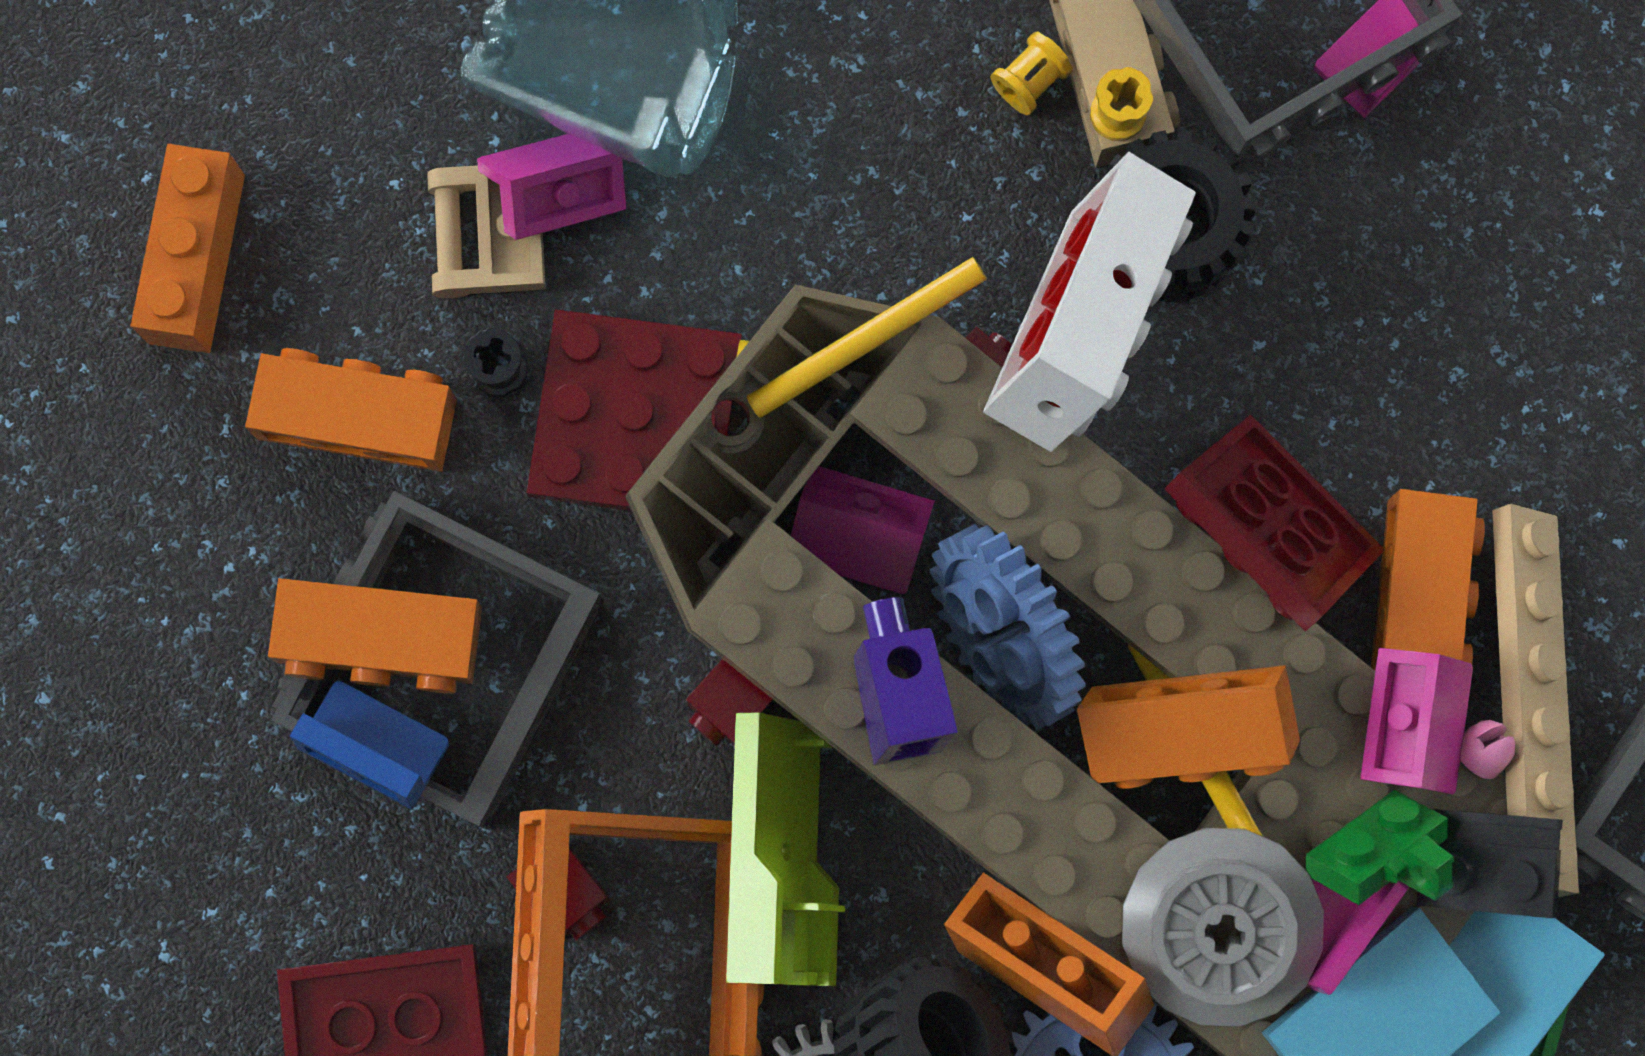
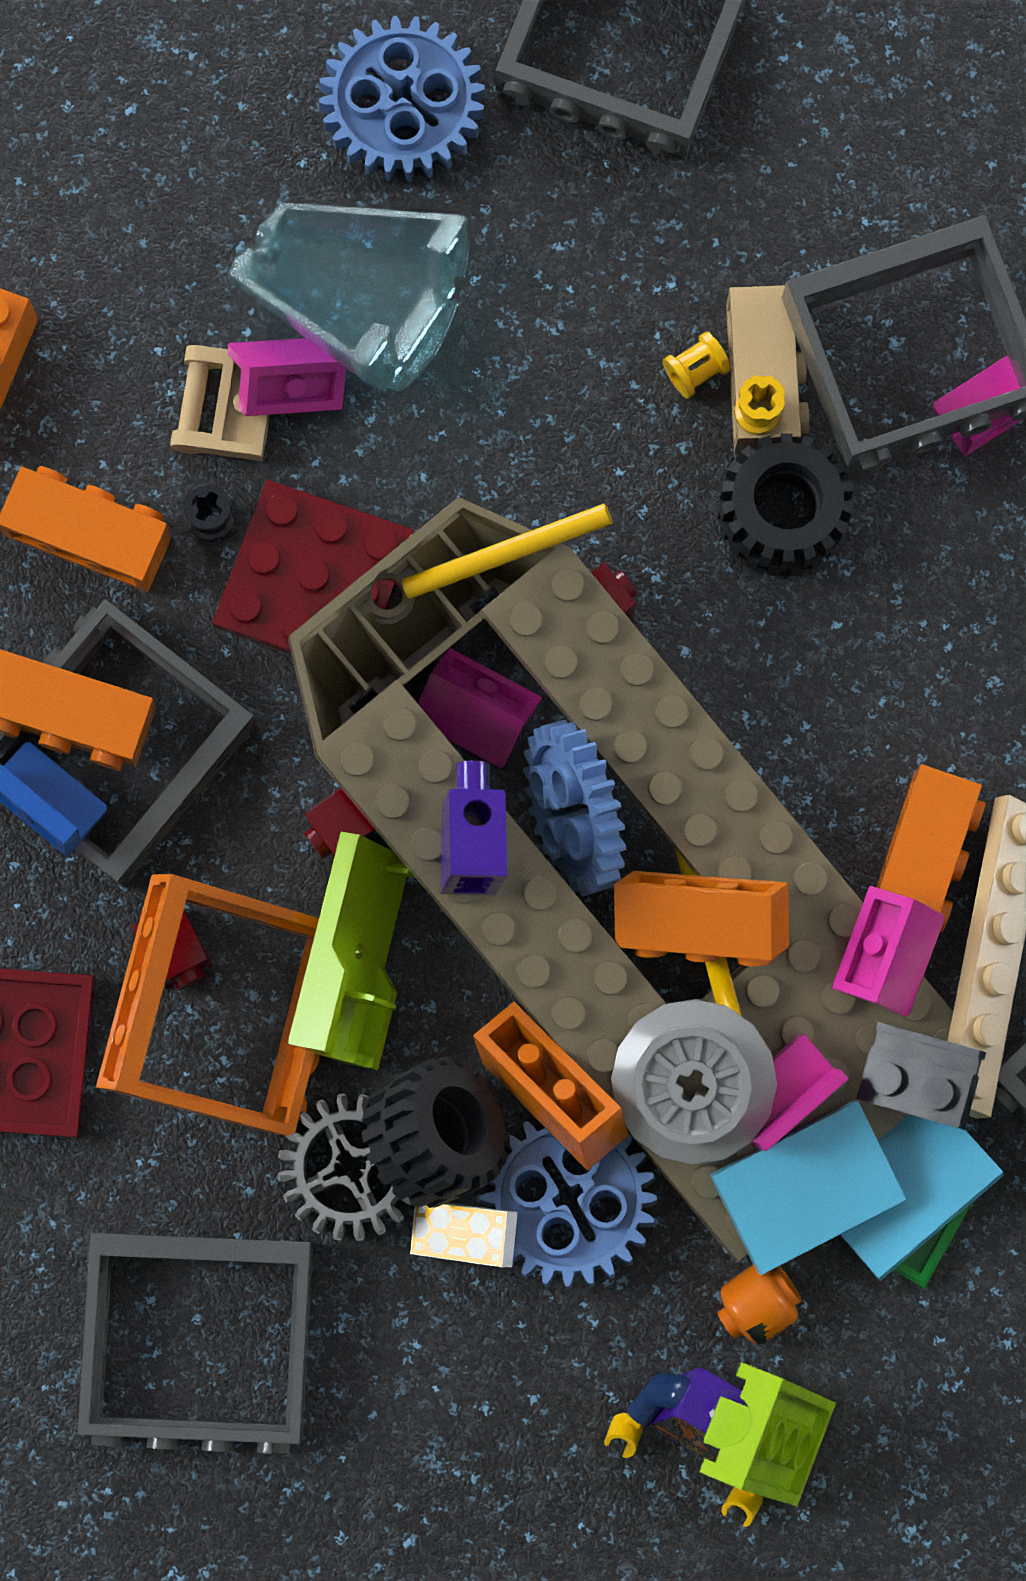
camera: 10 degrees right, 0 degrees up
(1092, 304) = (693, 561): white brick -> none
(1275, 522) = (811, 768): dark red plate -> none
(1384, 845) = (836, 1042): green hinge -> none
(1486, 749) = (942, 986): bright pink hinge -> none

